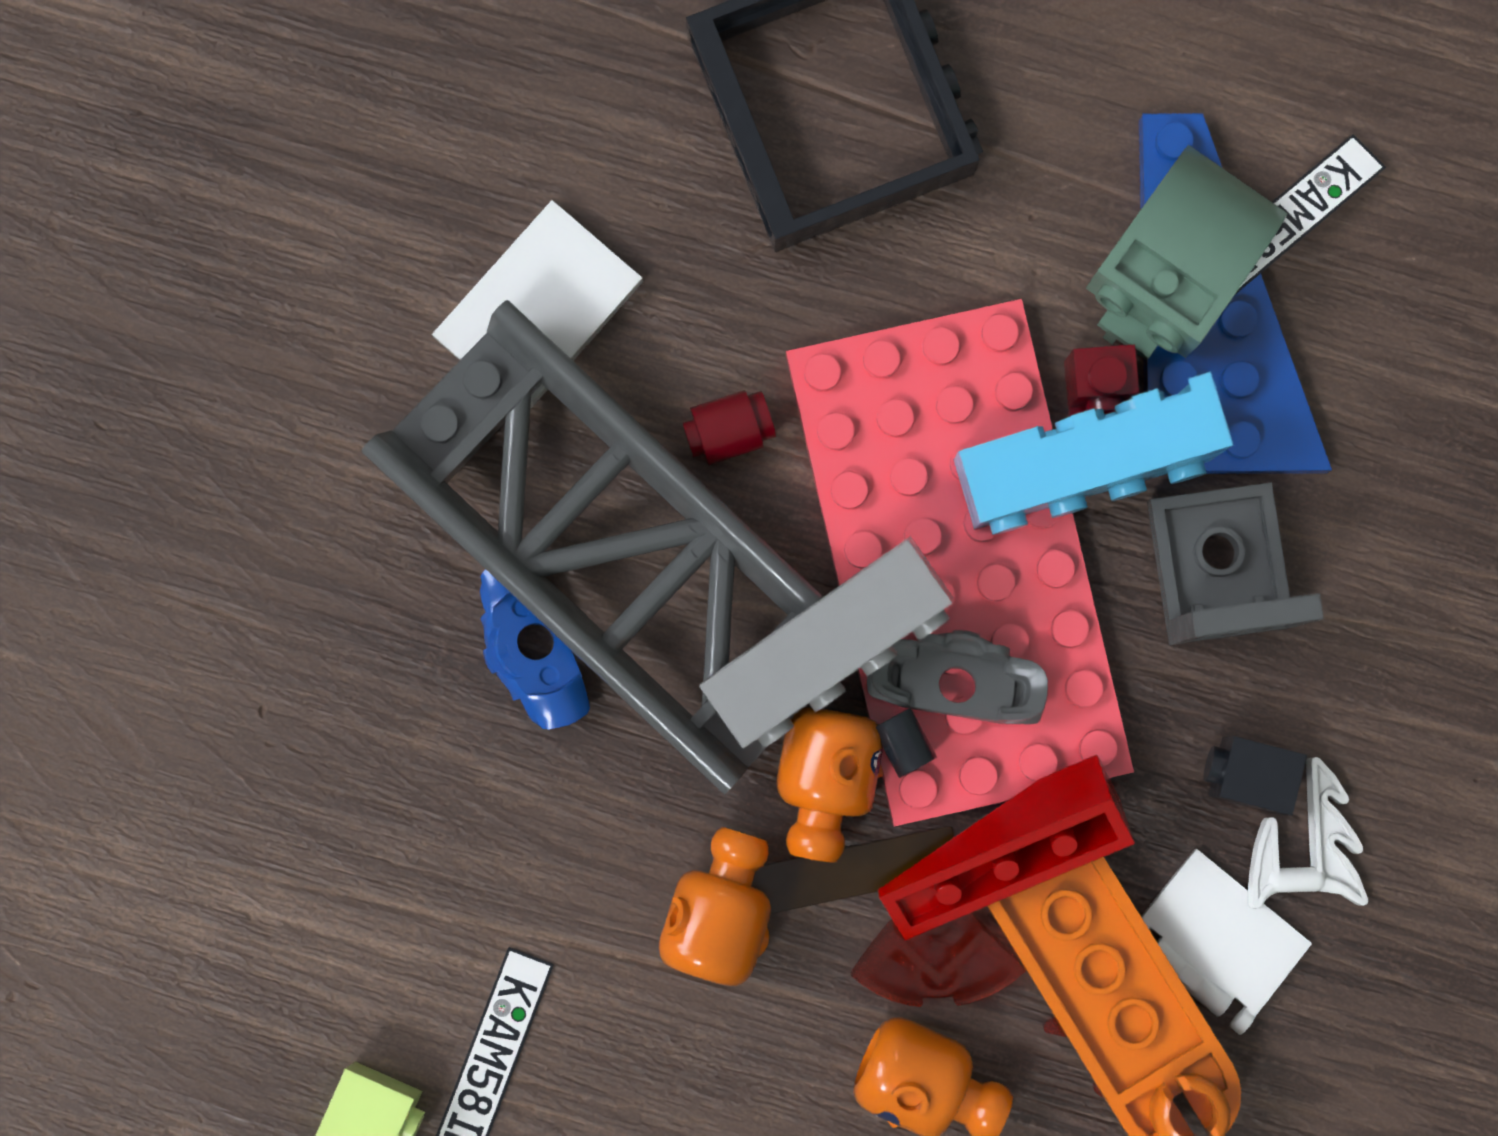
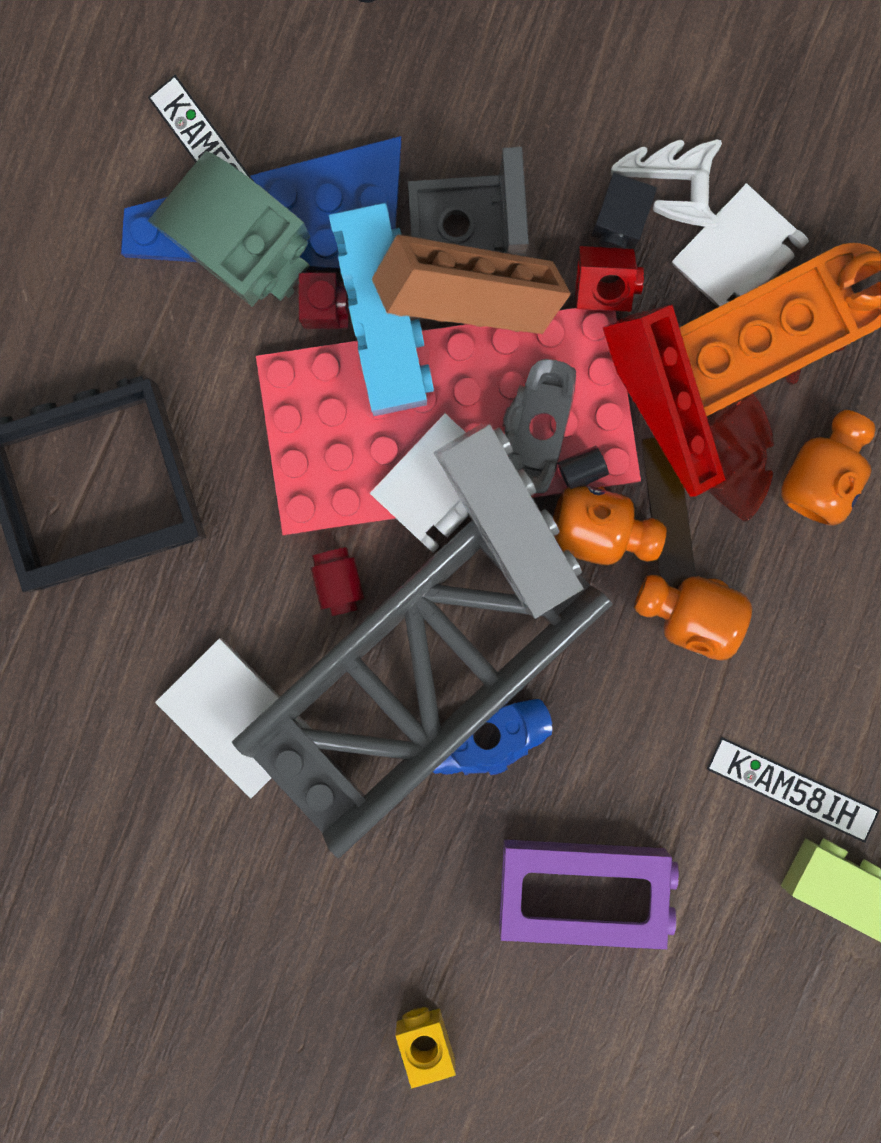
camera: 80 degrees left, 5 degrees up
(87, 583) = (429, 1065): none -> yellow brick
(376, 793) = (588, 860): none -> medium lavender piece
(857, 525) = (419, 489): none -> white piece
(1134, 566) = (469, 285): none -> nougat brick
(1140, 758) = (599, 262): none -> red brick

